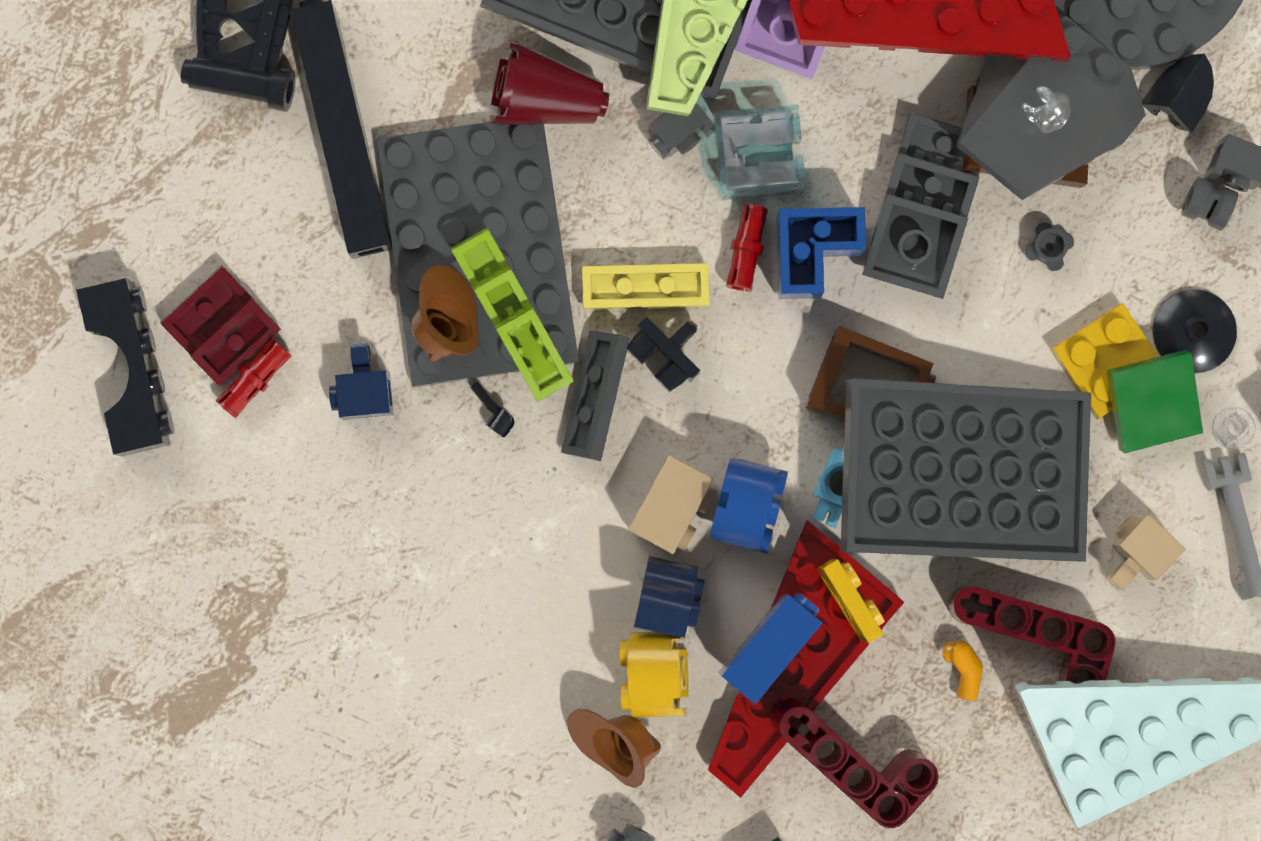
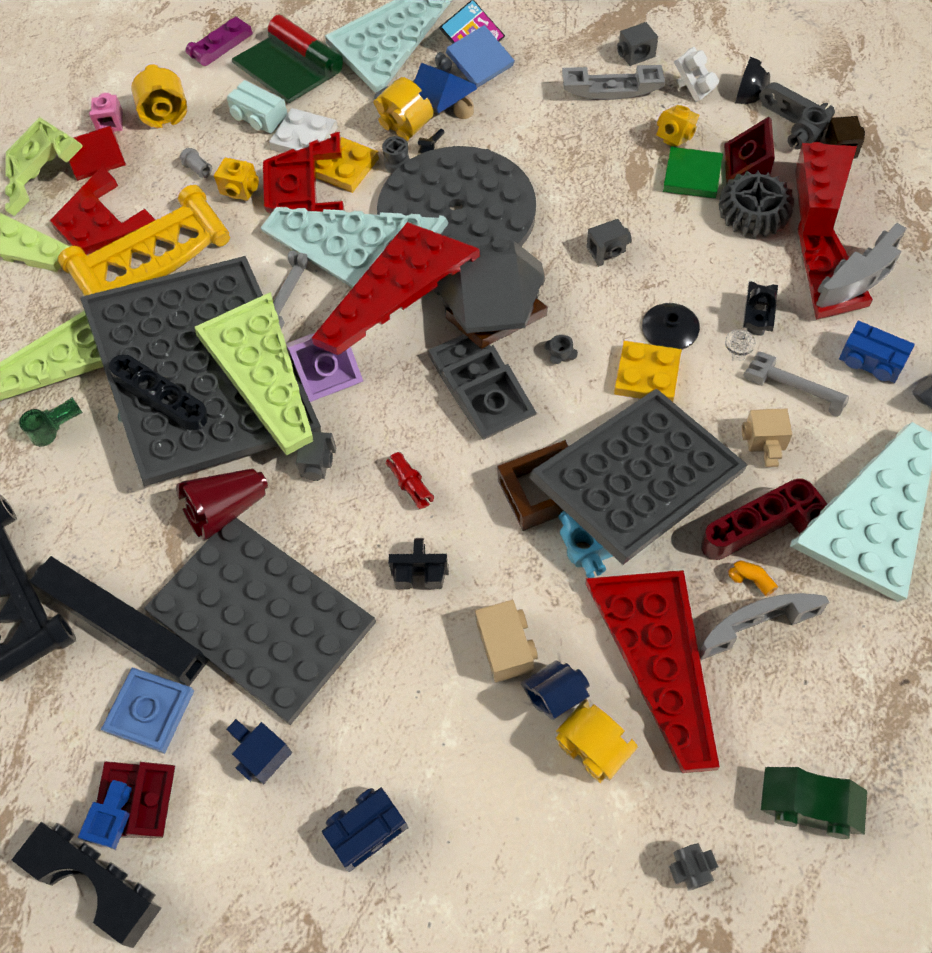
camera: 40 degrees left, 25 degrees down
(180, 331) = (107, 820): none -> blue plate
(253, 378) = (182, 811): red pin -> none
(299, 248) = (148, 710): none -> medium blue tile
(392, 549) = (364, 828): none -> dark blue brick
(446, 314) = (269, 657): dark orange piece -> none
(501, 420) = (360, 691): black hand -> none
(512, 314) = (311, 622): lime slope -> none
(595, 395) = (402, 626): dark grey plate -> none
(615, 744) = (614, 811): dark orange piece -> none
(645, 286) = (373, 546): light yellow plate -> none
(748, 505) = (546, 597): blue brick -> none
(758, 153) = (365, 431): piece -> none
(771, 646) = (643, 653): blue brick -> none
(806, 238) = (439, 444): blue brick -> none
(845, 759) = (750, 679): dark red beam -> none
(861, 614) = (657, 585): yellow plate -> none
(966, 737) = (795, 606): none -> light grey slope
(1052, 113) = (493, 276): clear plate -> none
(1155, 401) = (690, 364): green tile -> none
(1183, 91) = (547, 238): black brick -> none
(1209, 203) = (613, 267): dark grey wheel -> none

